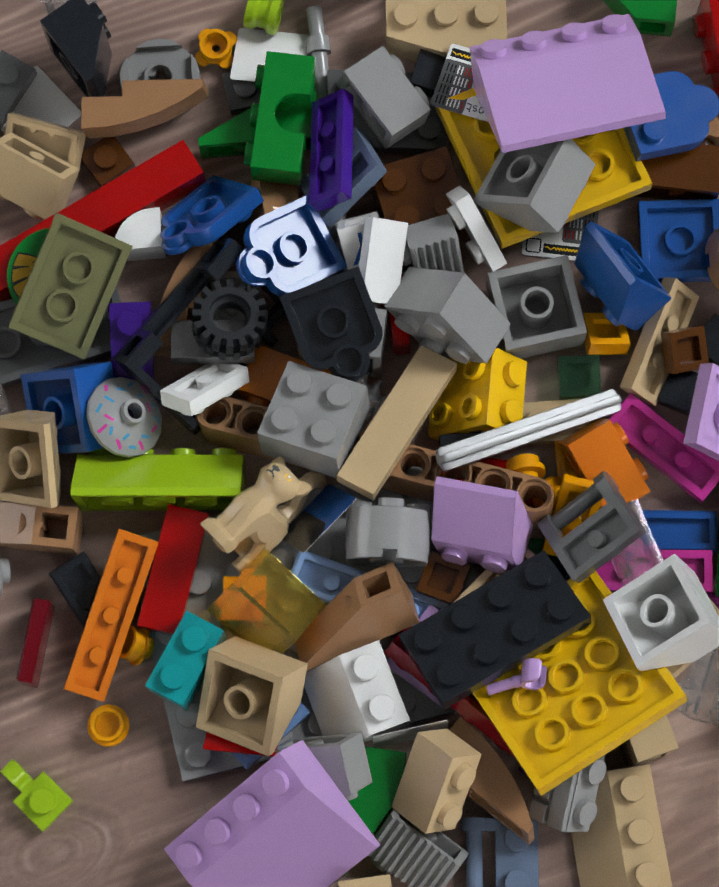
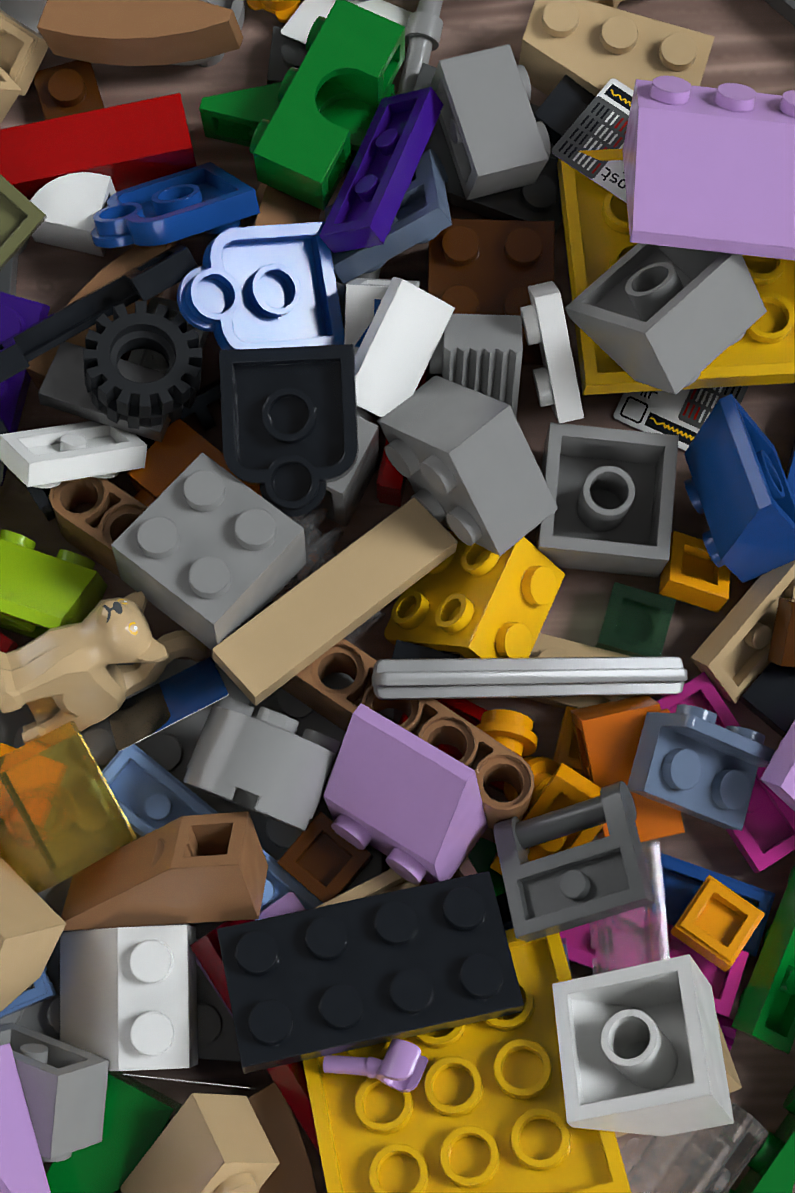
camera: 15 degrees right, 0 degrees up
(645, 448) = (698, 765): none -> sand blue bracket
(687, 538) = (717, 923): none -> light orange tile

